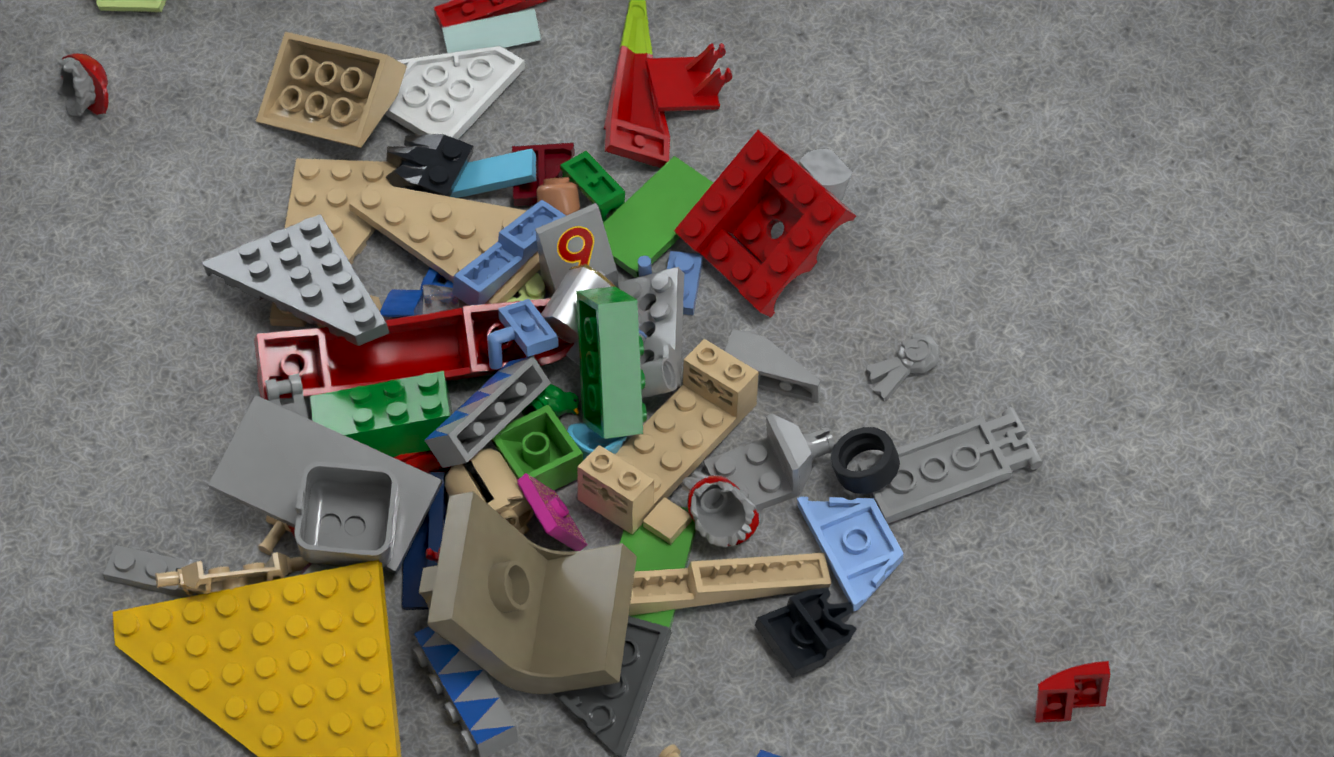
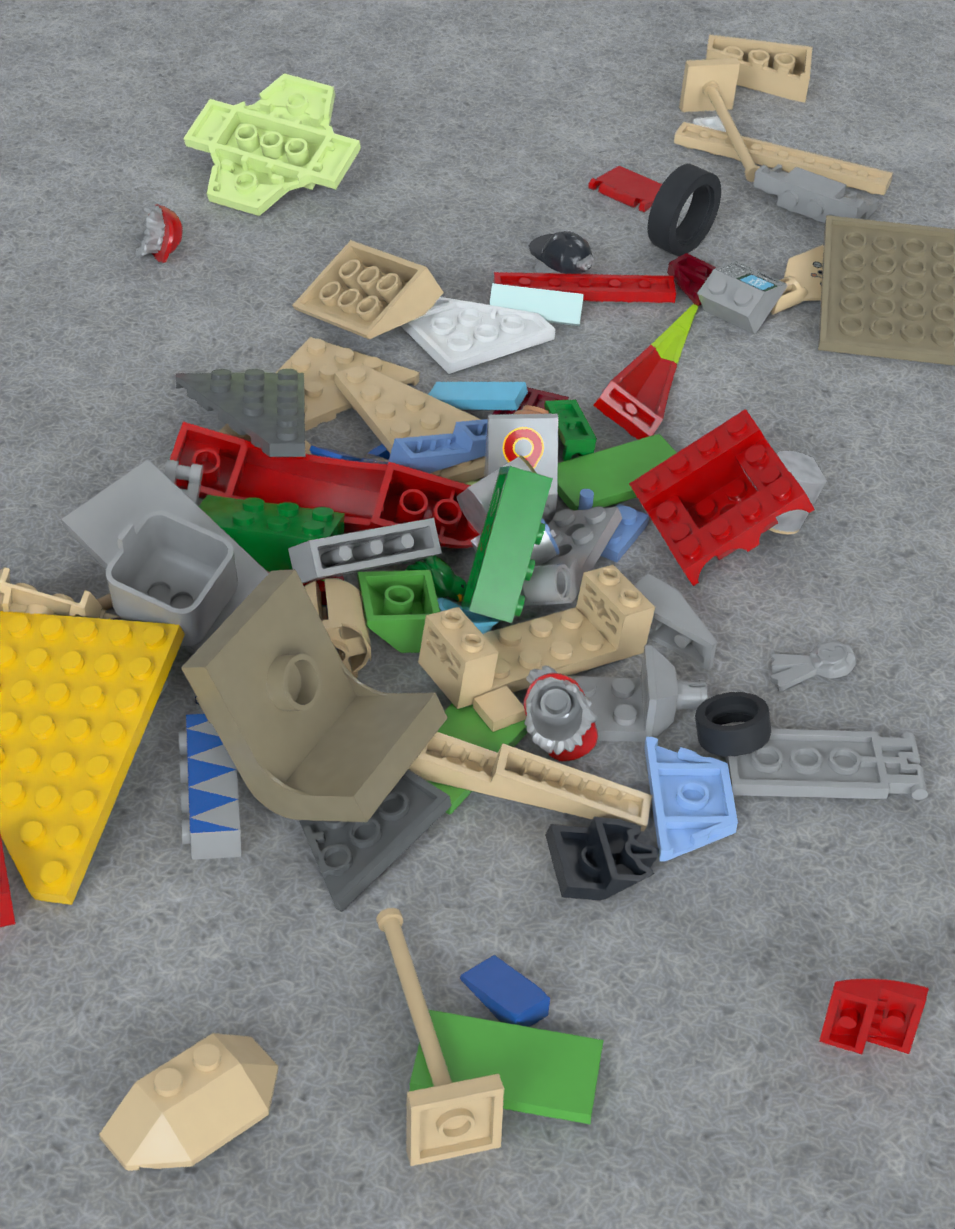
camera: 15 degrees right, 15 degrees down
(428, 163) = (427, 369): black plate -> none
(524, 326) = (439, 494): medium blue plate -> none
(551, 512) = (382, 655): dark pink plate -> none
(687, 81) = (701, 388): red plate -> none

